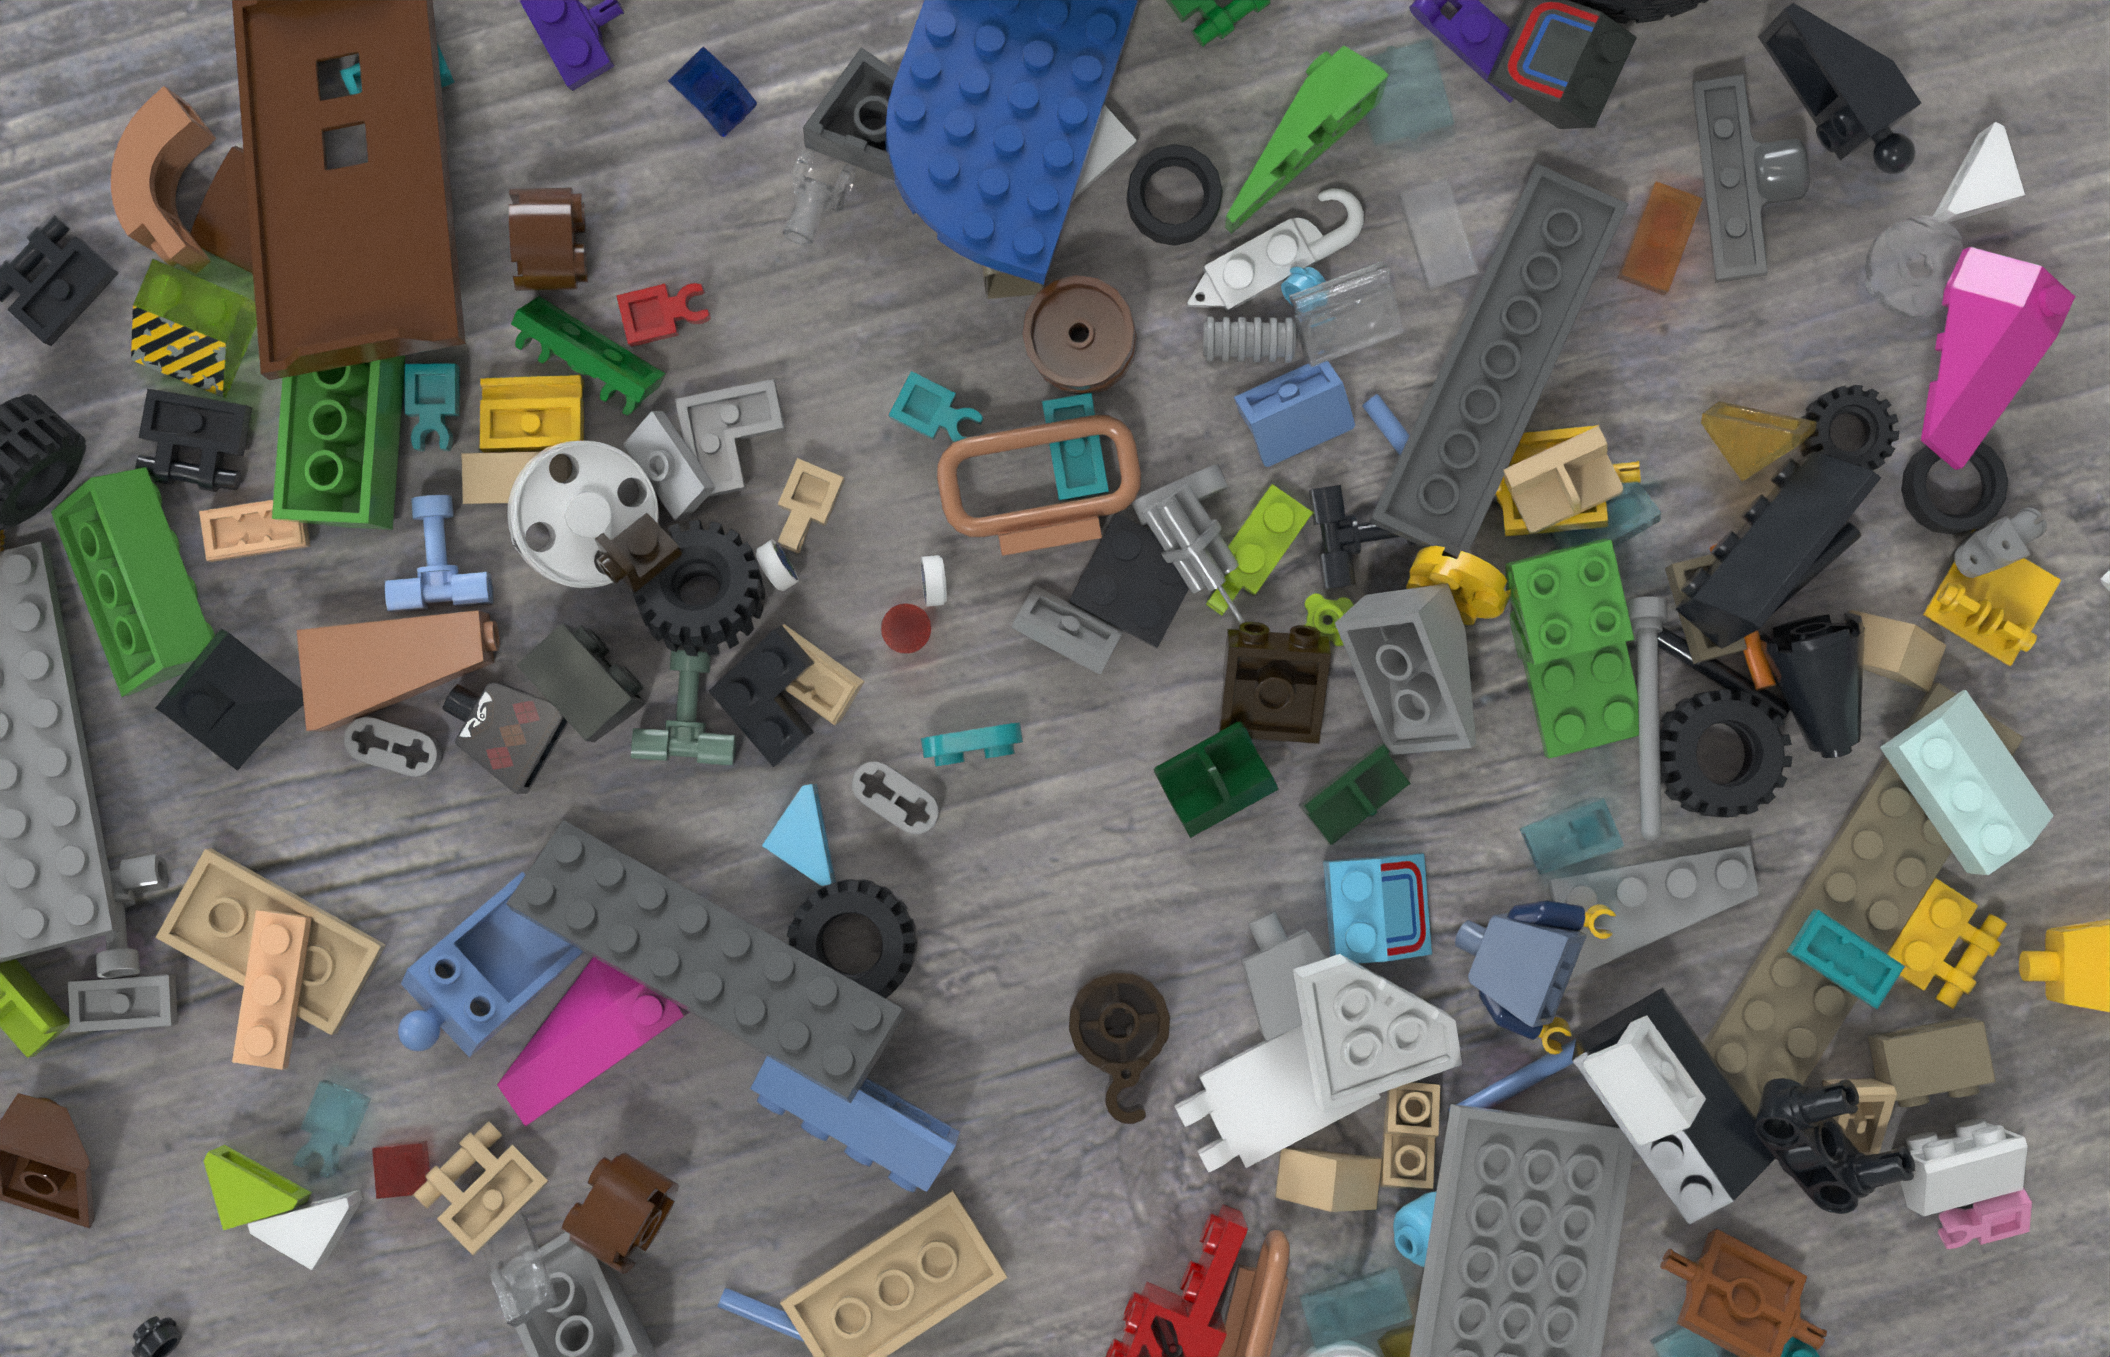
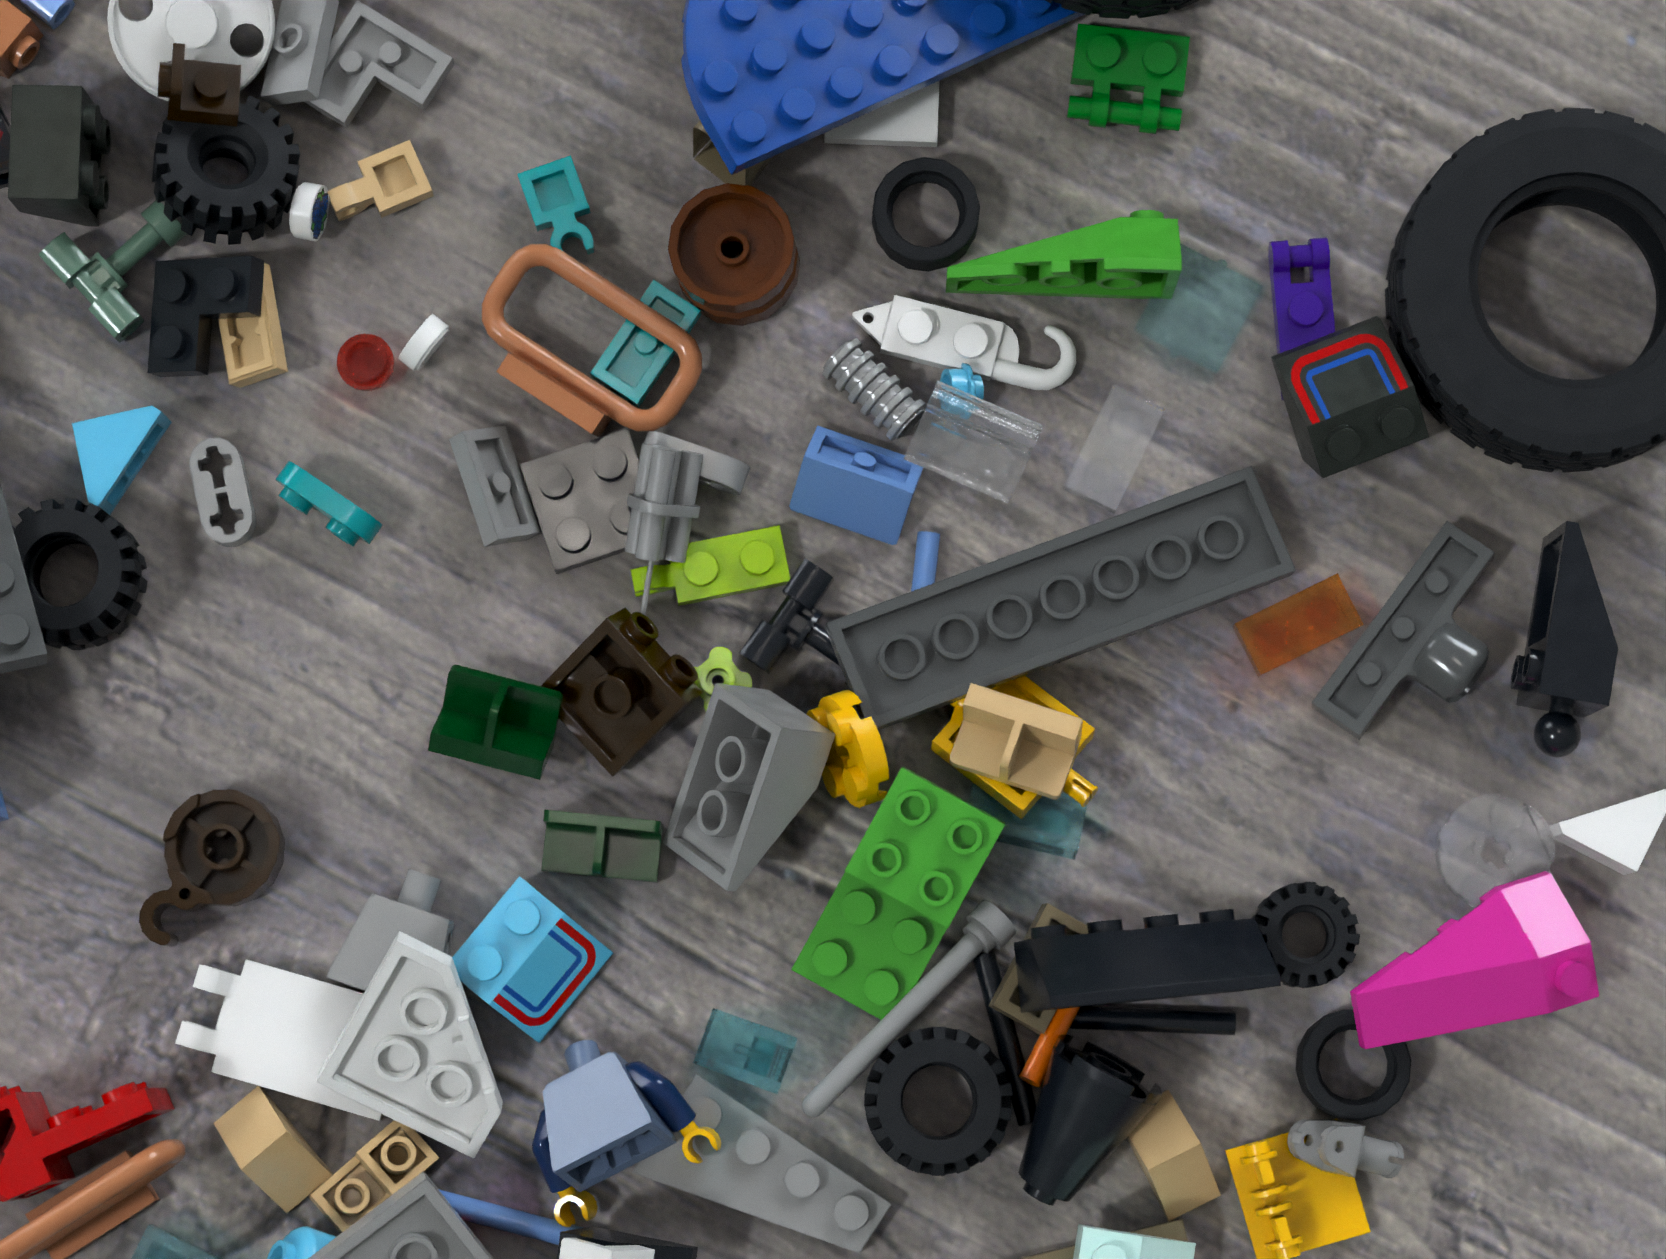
camera: 35 degrees right, 5 degrees down
(1753, 436) = (1216, 860): clear yellow slope -> none

